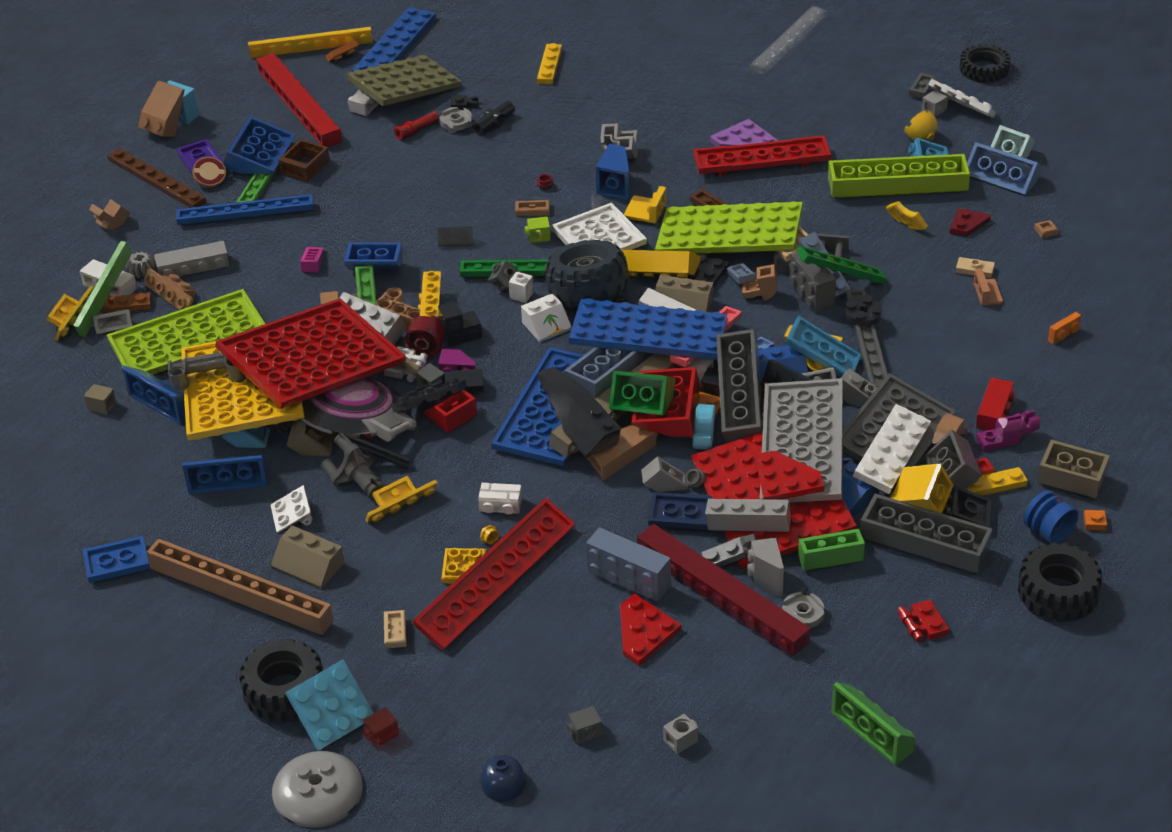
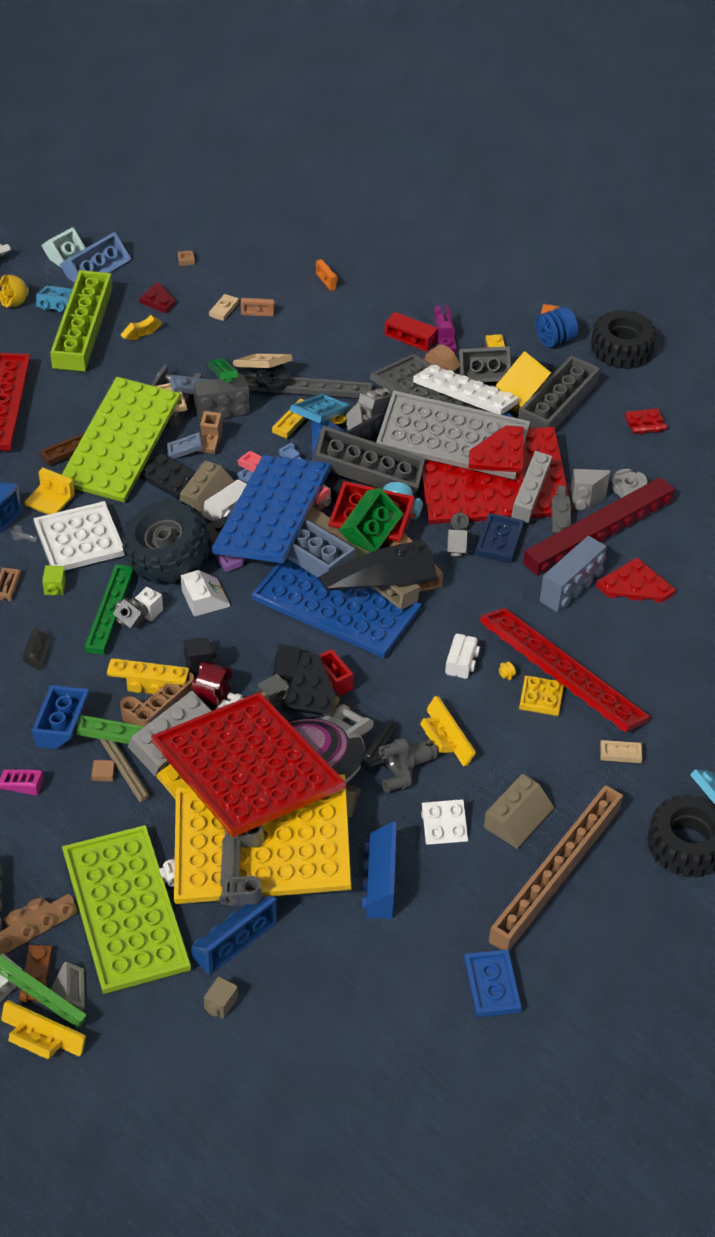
camera: 85 degrees left, 5 degrees up
(455, 360) = (255, 668): magenta slope -> none
(661, 262) = (157, 486): yellow slope -> none
(831, 549) = (569, 449): bright green brick -> none
(882, 297) = (262, 360): none -> tan tile
(1073, 468) = (500, 305): dark tan brick -> none

